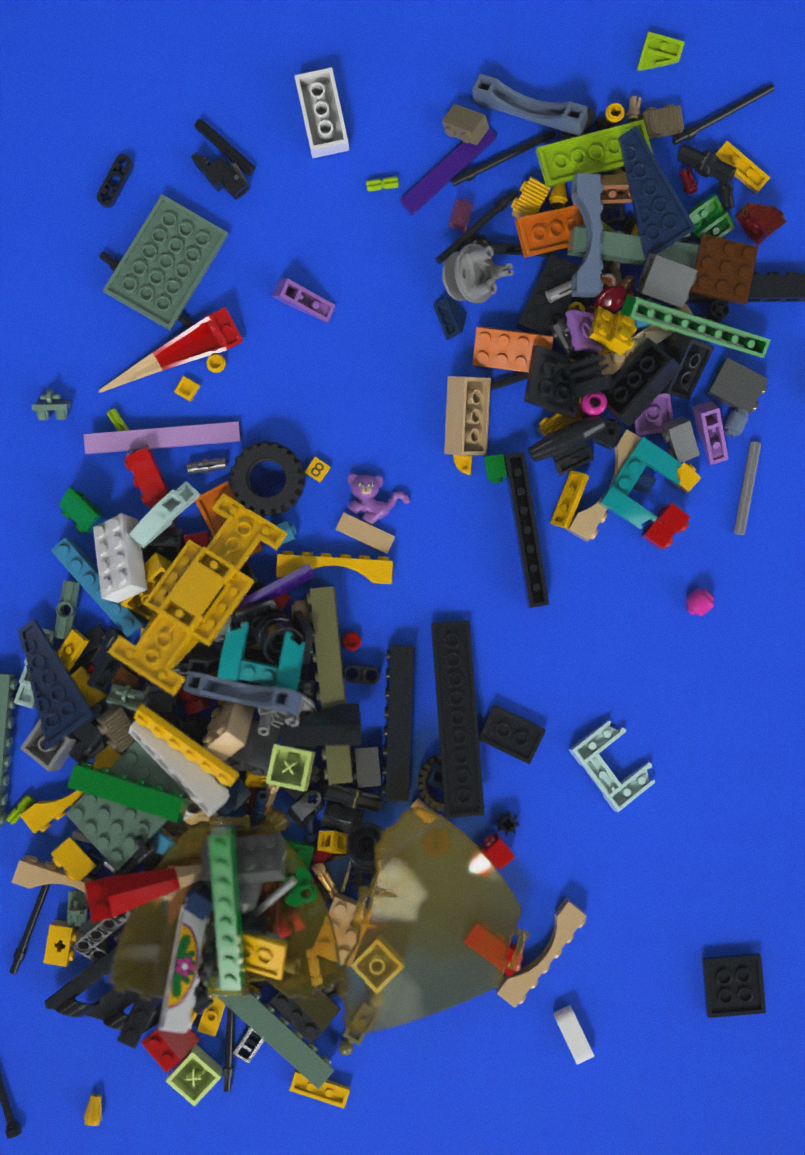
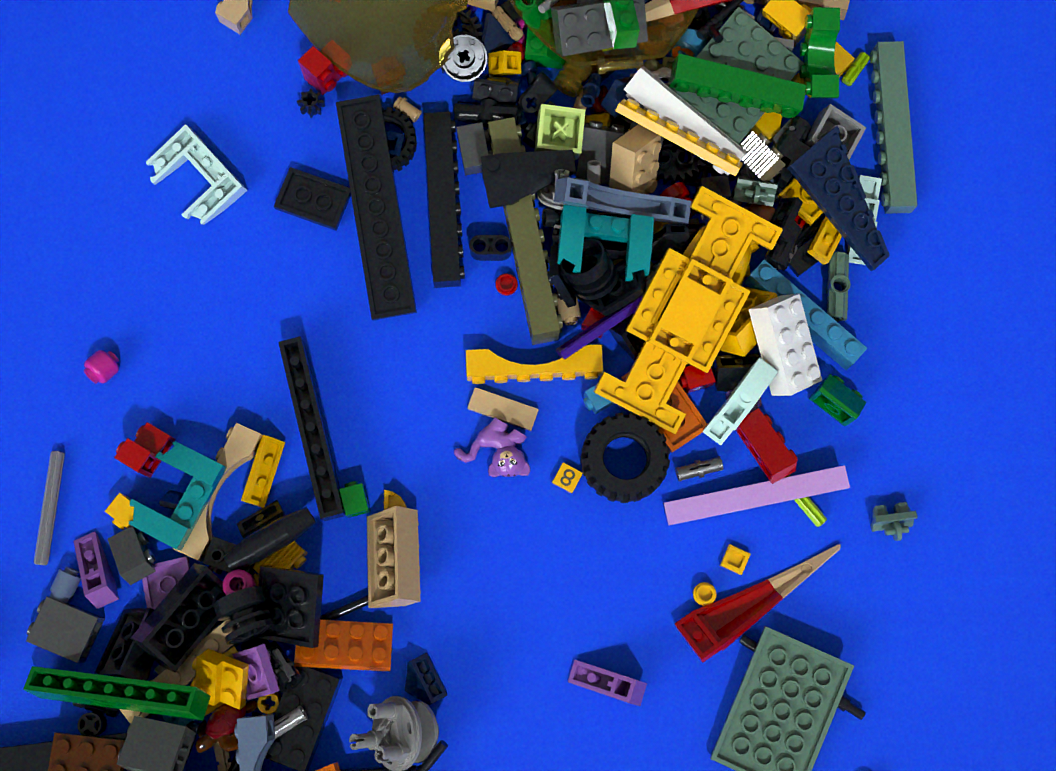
camera: 170 degrees right, 10 degrees down
(52, 815) = (818, 53): none -> green brick

